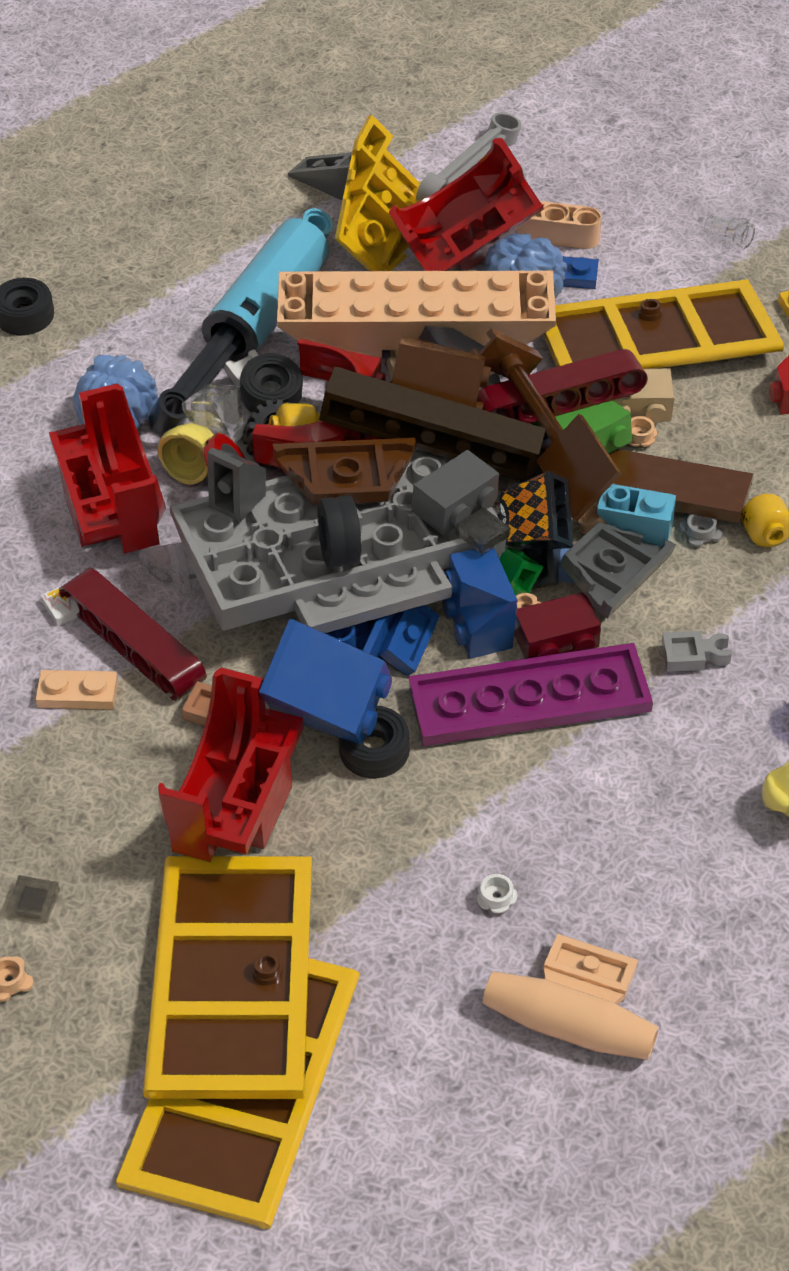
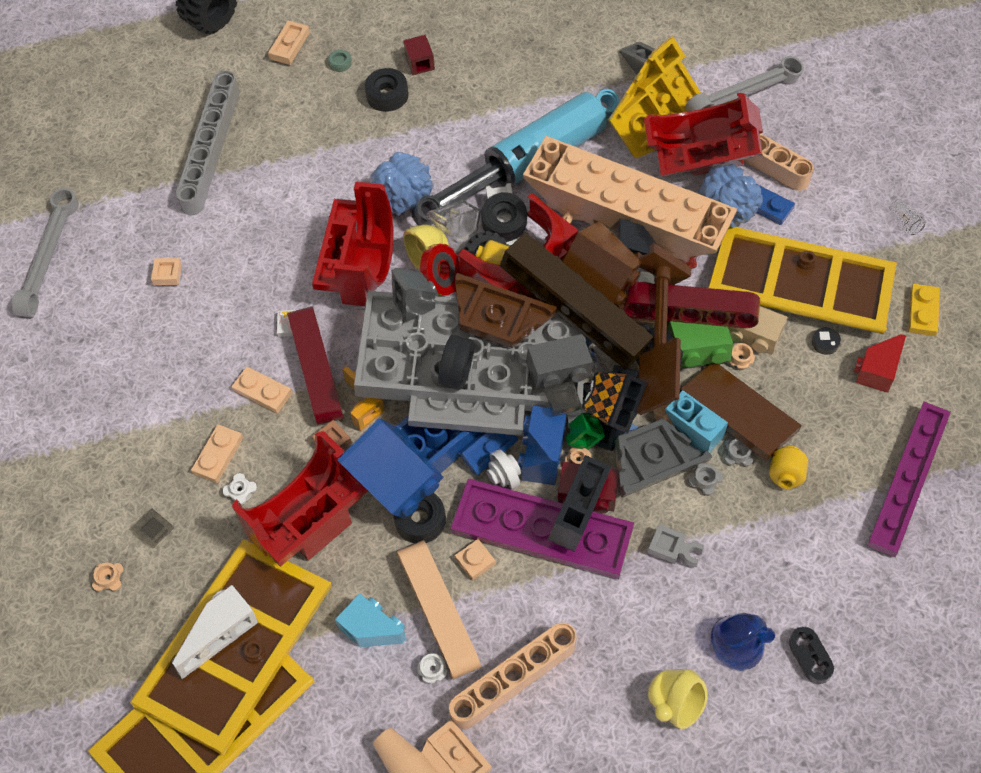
camera: 30 degrees right, 10 degrees up
(41, 254) = (419, 54): none -> dark red brick
(65, 782) = (217, 453): none -> light nougat plate
(122, 816) = (246, 492): none -> white plate
(211, 946) = (218, 625): none -> white slope
(232, 644) = (364, 411): none -> light orange bracket
(392, 880) = (368, 625): none -> medium azure slope
(447, 648) = (503, 470): none -> white plate
(464, 826) = (439, 609): none -> light nougat beam
(470, 761) = (475, 559): none -> light nougat plate
(566, 642) = (579, 503): none -> black slope
(601, 841) = (519, 662): none -> light nougat beam
(682, 561) = (704, 470): none -> light grey plate
(722, 383) = (826, 341): none -> black tile

